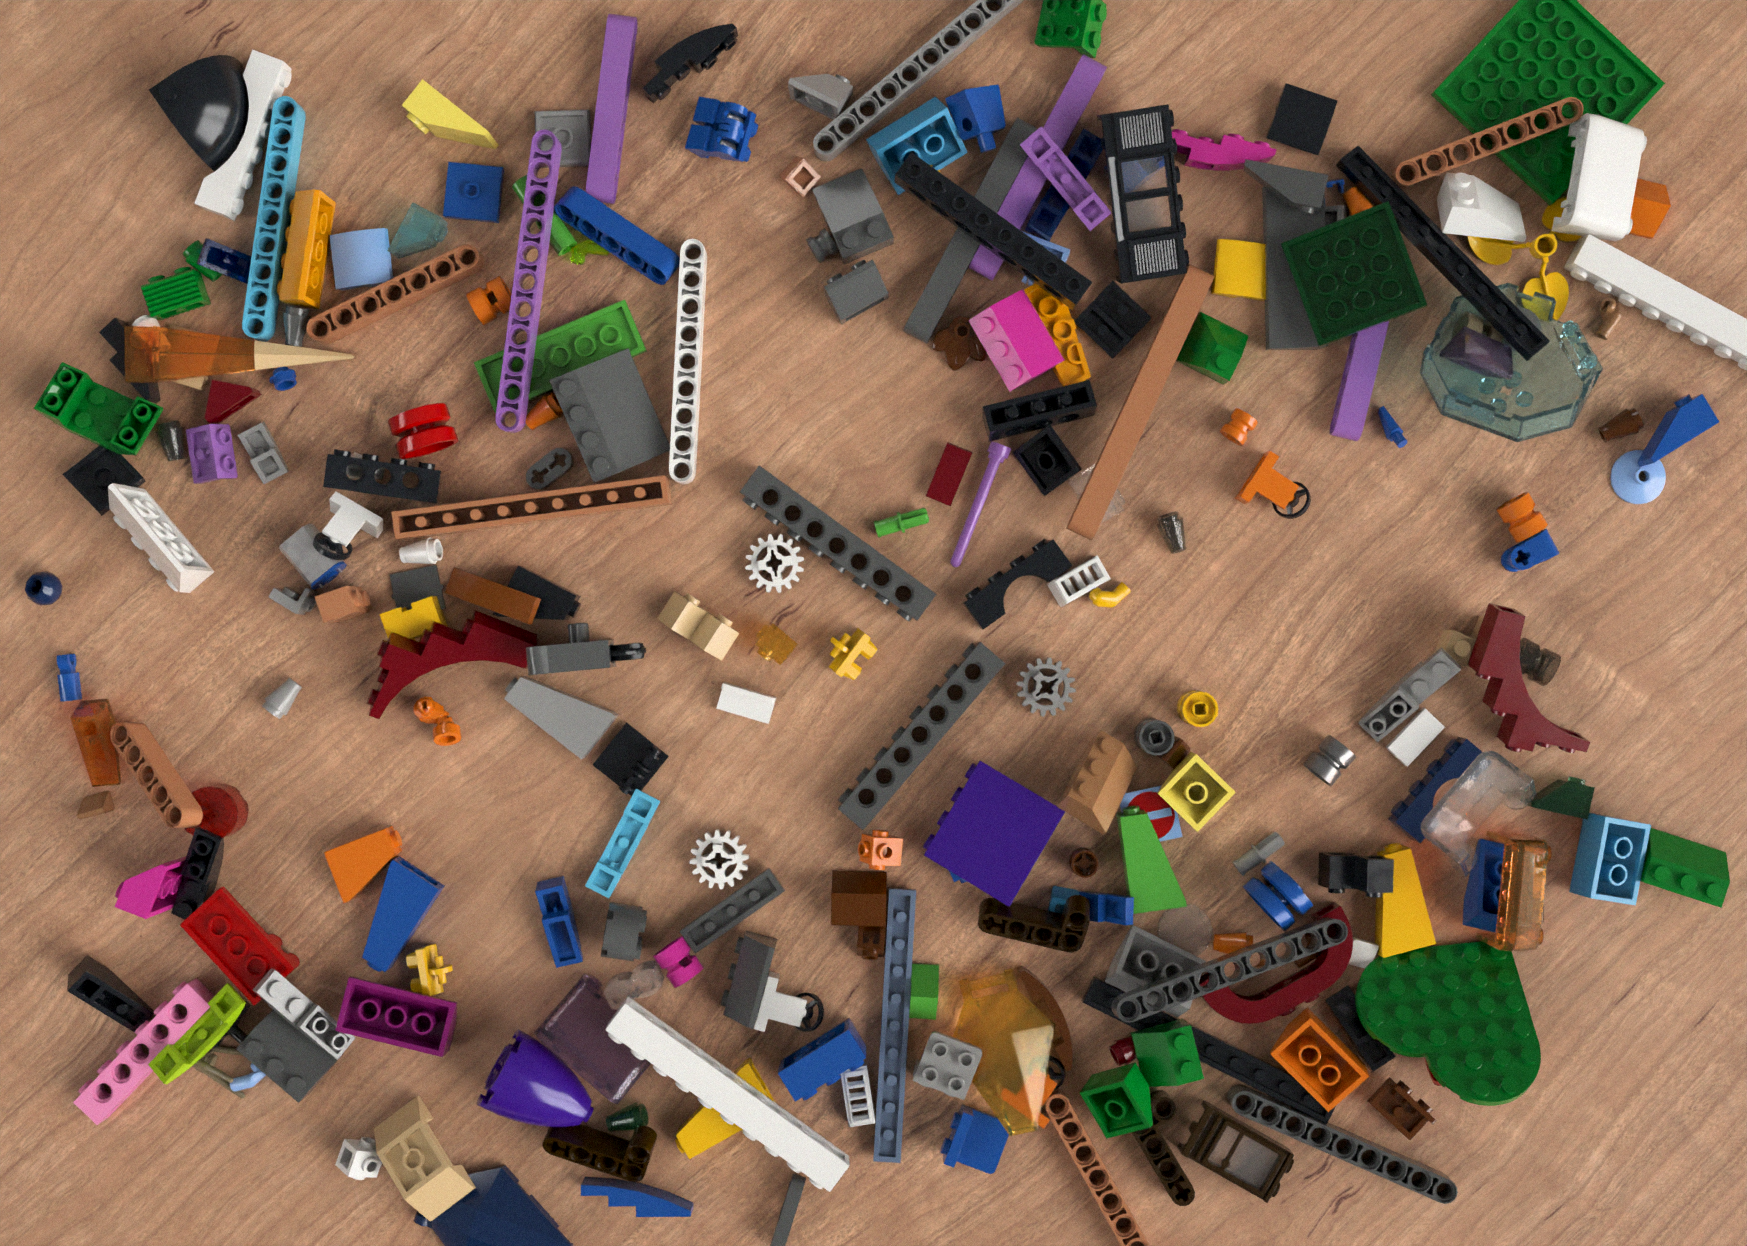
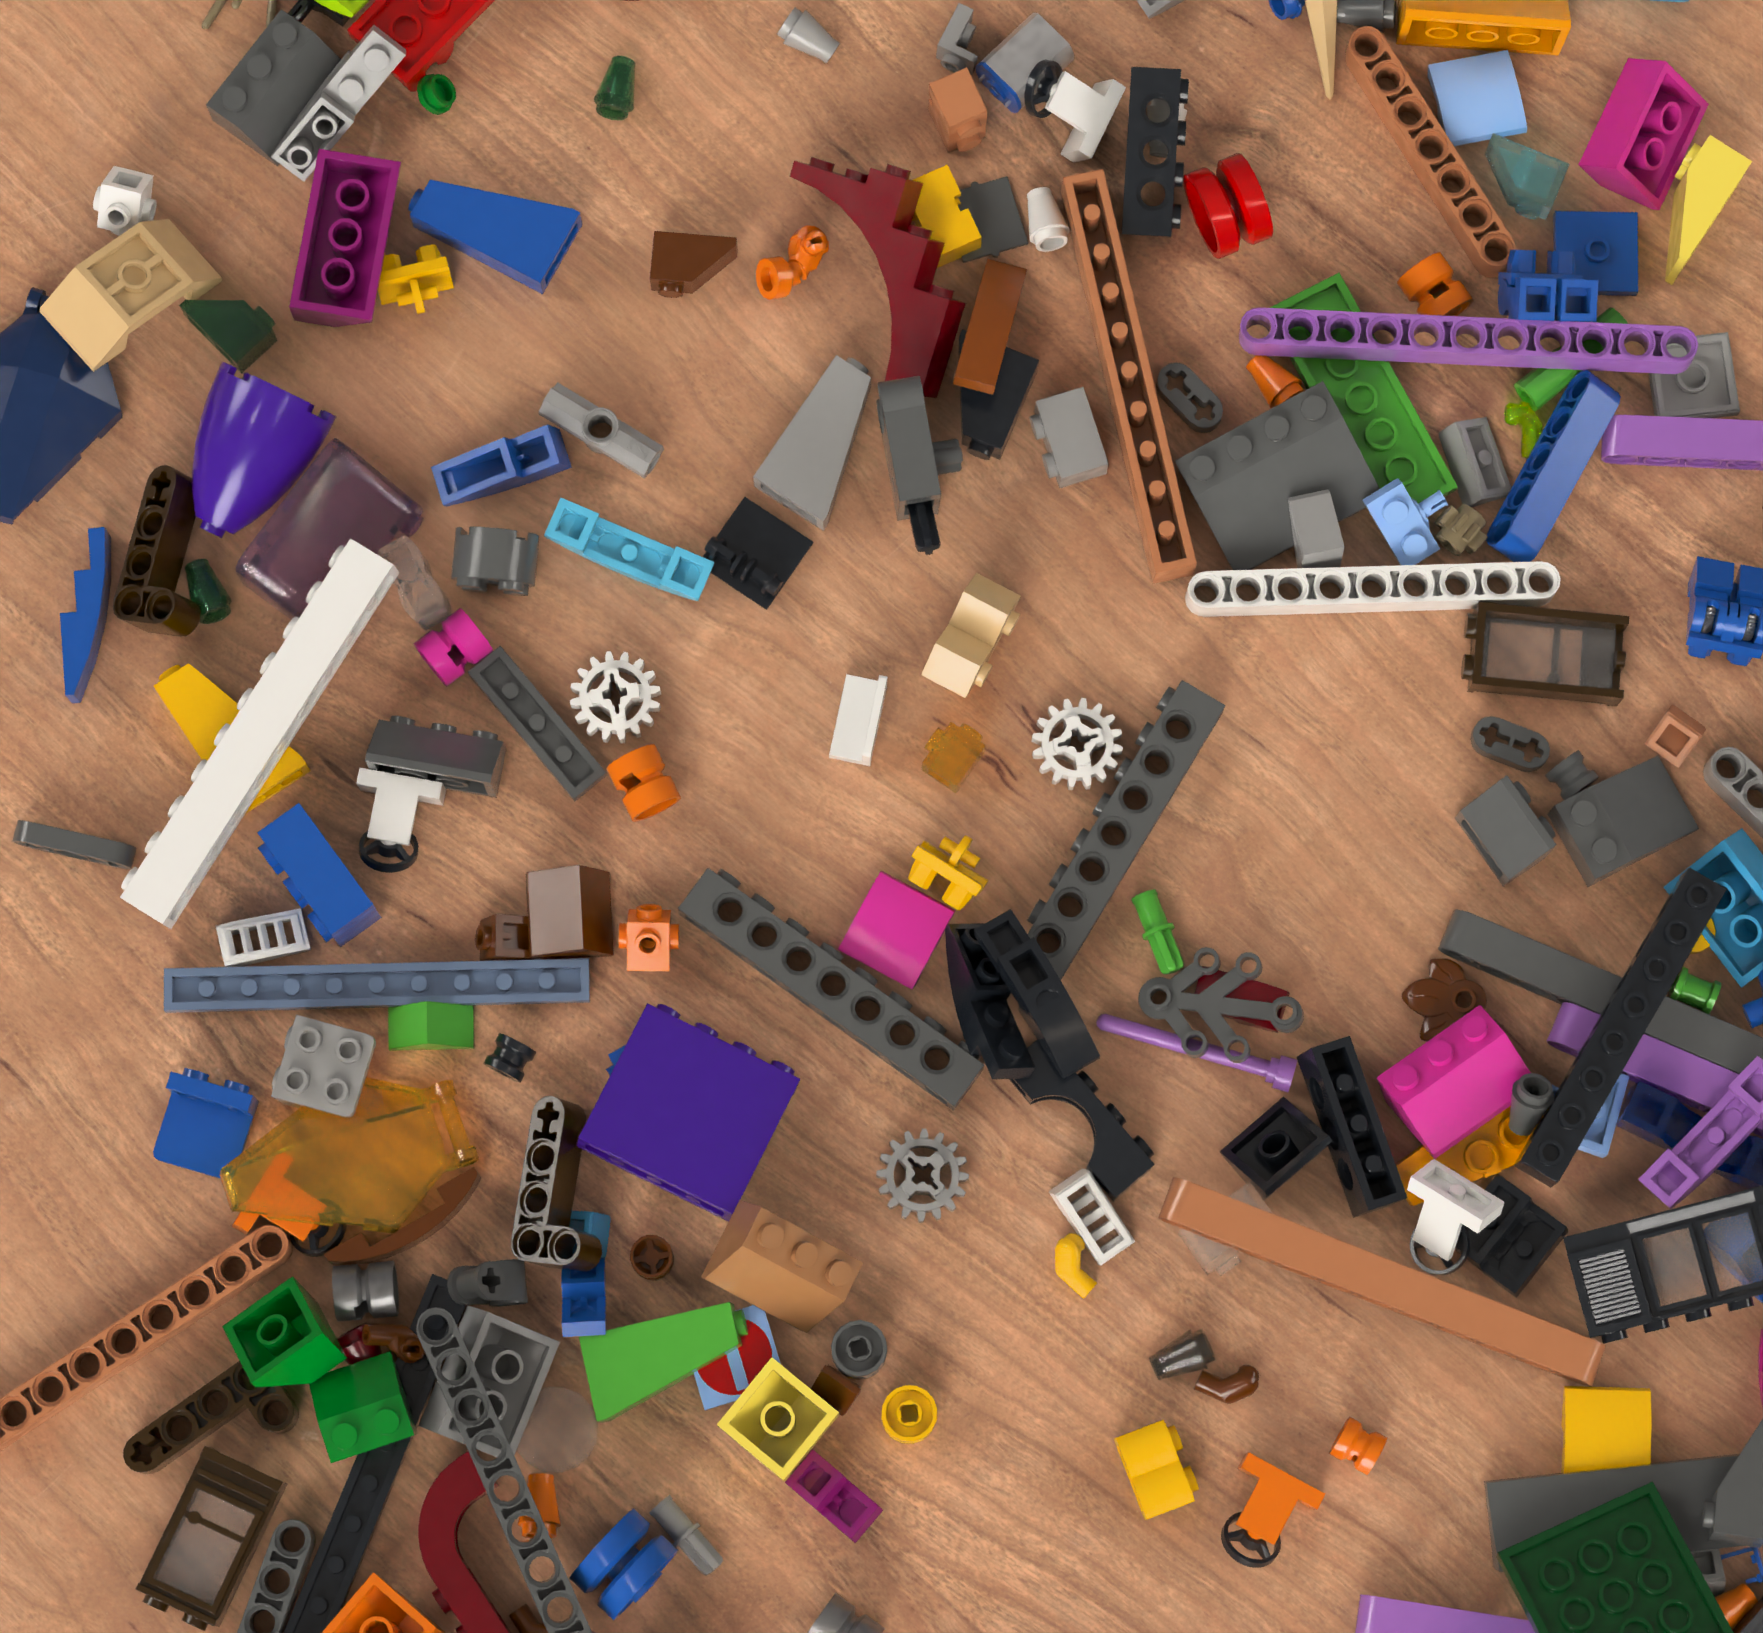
camera: 85 degrees right, 10 degrees down
(247, 1081) = (230, 31): light blue arm -> none
(302, 947) = (436, 93): none -> green plate
(310, 828) = (616, 91): none -> clear green cone
(362, 860) = (573, 170): orange slope -> none
(393, 151) = (1644, 132): none -> dark pink slope
(431, 790) = (688, 261): none -> reddish brown slope
(452, 1091) = (232, 328): none -> clear green slope
(501, 224) = (1549, 295): none -> blue hips
(530, 868) = (623, 443): none -> light grey piece
(571, 549) = (1069, 438): none -> light grey brick
(608, 286) = (1474, 461): none -> light grey slope
(645, 336) = (1405, 521): none -> light blue plate
(647, 395) = (1315, 530): none -> light grey slope
(653, 300) = (1460, 529): none -> dark tan gear
(739, 254) = (1545, 653): none -> door
(777, 845) = (643, 782): none -> orange wheel
(802, 286) = (1514, 735): none -> dark grey beam
(886, 689) = (896, 930): none -> dark pink slope
(939, 604) = (1038, 992): none -> black slope
(940, 640) = (983, 1006): none -> black slope
(948, 943) = (509, 1057): none -> black wheel
(952, 492) = (1213, 1004): none -> dark grey plant
(970, 179) = (1694, 991): none -> bright green bush
(1035, 295) = (1529, 1102): none -> dark grey cone
(1090, 1045) = (365, 1291): none -> flat silver wheel
(1093, 967) = (489, 1284): none -> dark grey piece
(1098, 353) = (1447, 1206): none -> white piece
(1121, 1033) = (396, 1338): none -> reddish brown arm
(1195, 503) = (1229, 1389): none -> reddish brown arm
(1212, 348) = (1478, 1396): green slope -> none
(1241, 758) = (834, 1496): none -> magenta slope
(1242, 556) = (1155, 1468): none -> yellow brick

